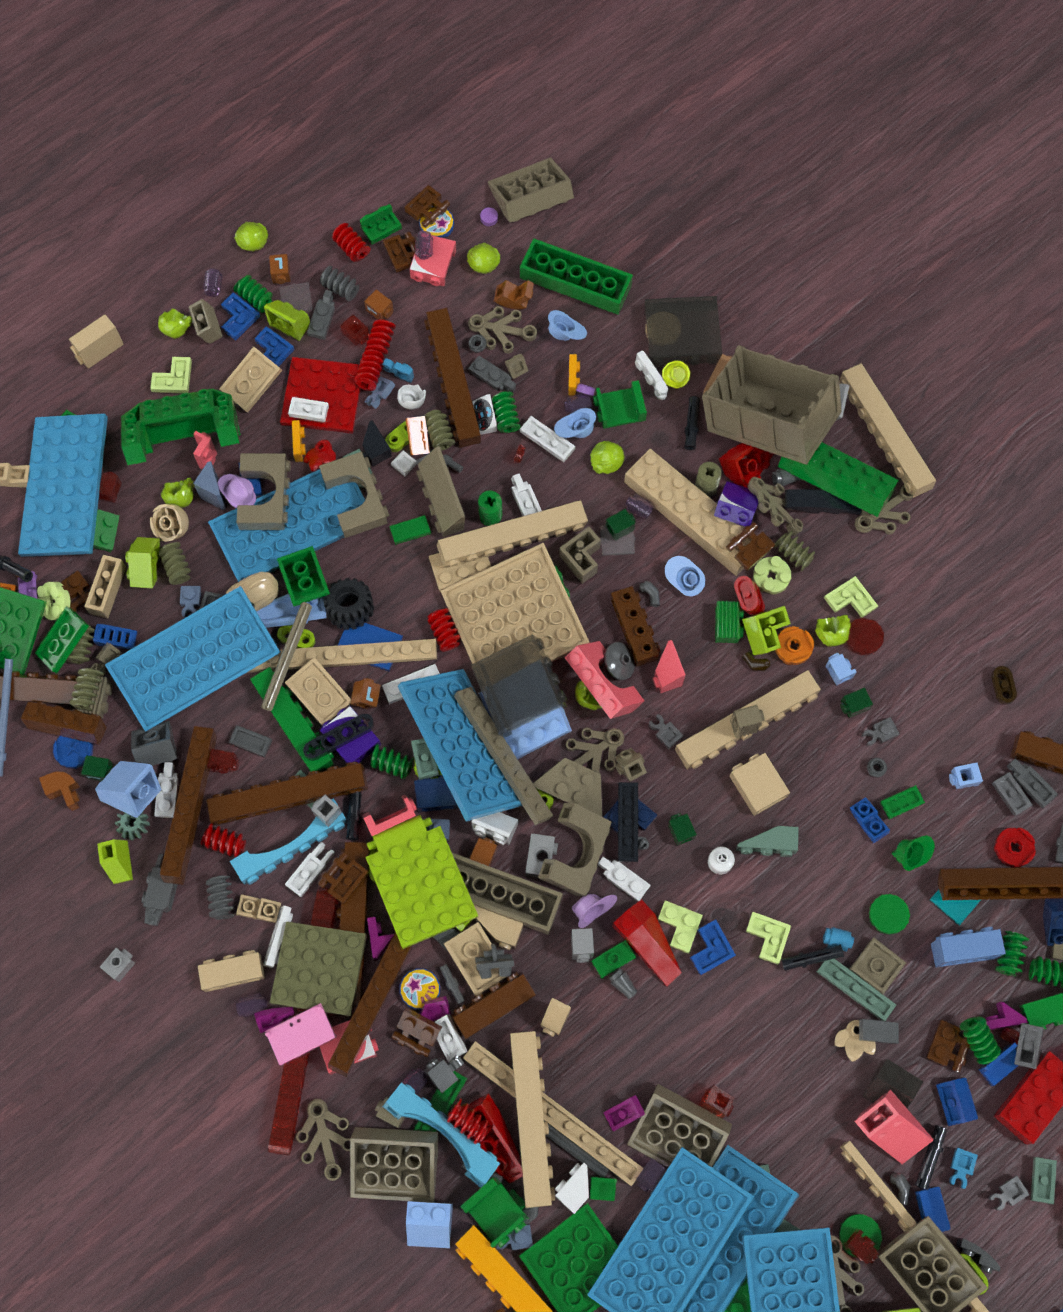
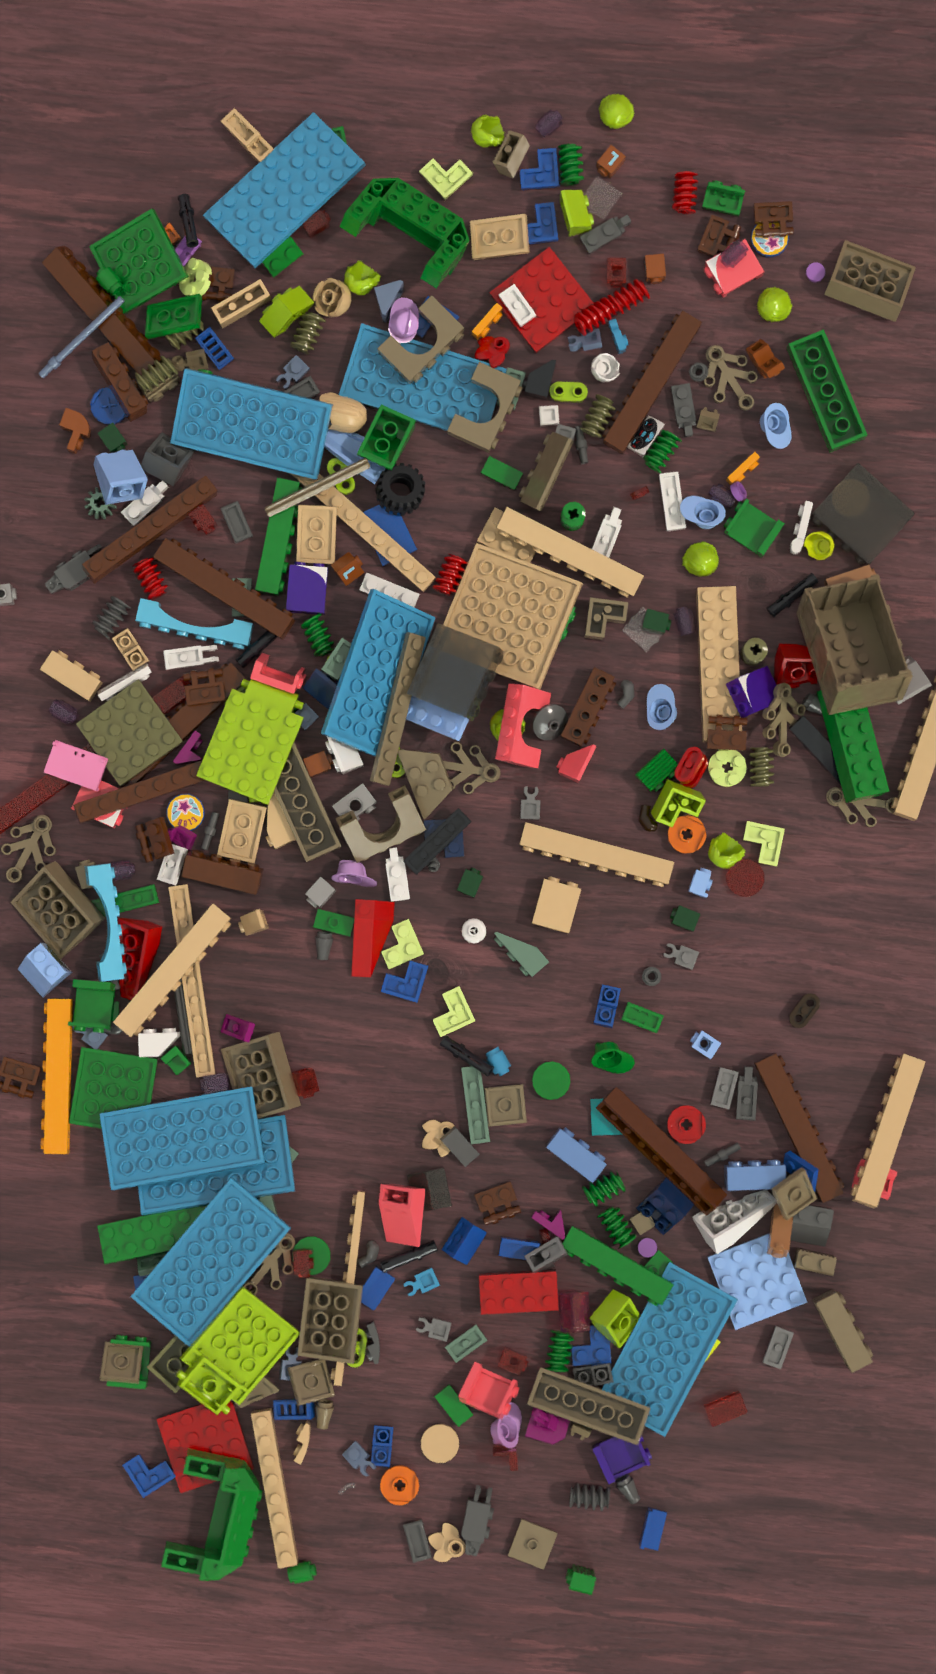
camera: 45 degrees right, 15 degrees up
(95, 342) = (412, 92): tan brick -> none
(115, 860) = (65, 520): lime slope -> none
(205, 450) = (409, 267): coral bracket -> none
(271, 1017) = (69, 734): magenta slope -> none
(326, 810) = (236, 628): light grey brick -> none
(337, 734) = (298, 580): black beam -> none
(338, 284) = (642, 219): dark grey piece -> none
(417, 435) = (578, 405): plate -> none
(442, 1073) = (144, 883): dark grey brick -> none
(469, 1122) = (129, 932): red piece -> none
(494, 959) = (250, 844): dark grey hips -> none
(630, 764) = (480, 803): dark tan brick -> none
(746, 721) = (588, 855): dark tan brick -> none
(981, 1039) = (519, 1218): green piece -> none

